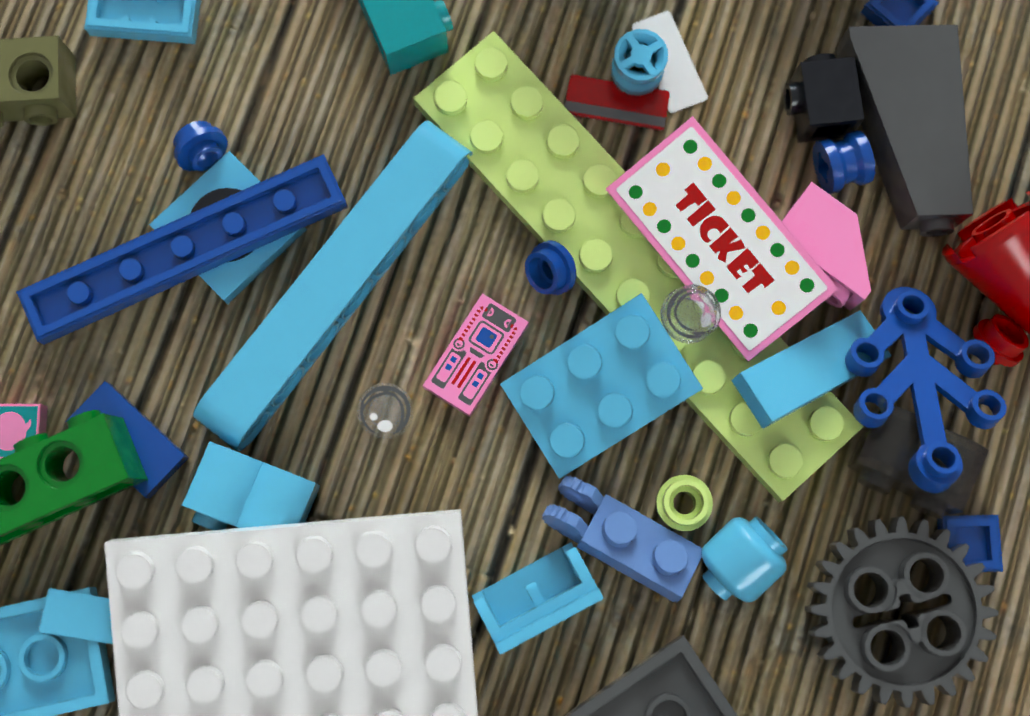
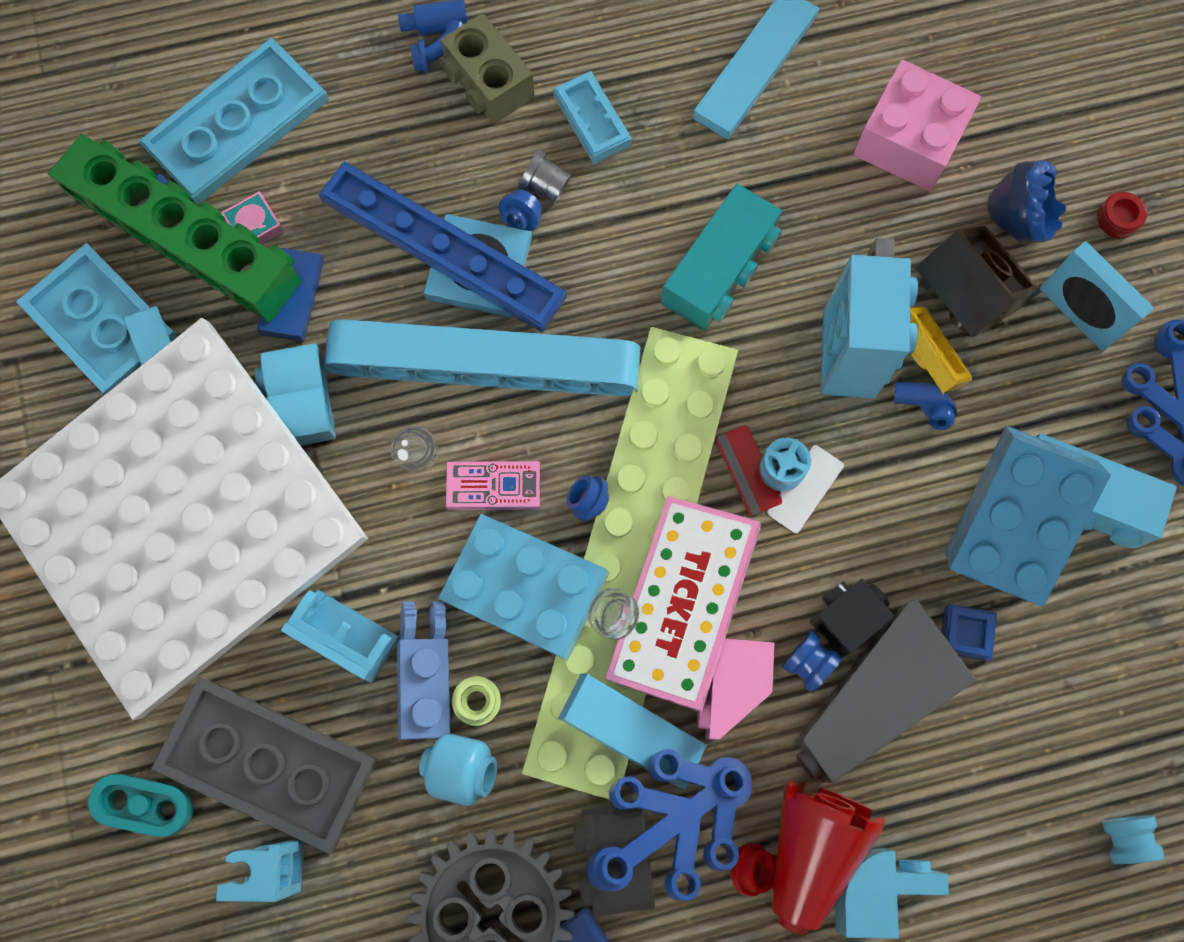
camera: 60 degrees right, 5 degrees down
(180, 101) = (544, 178): none -> flat silver piece

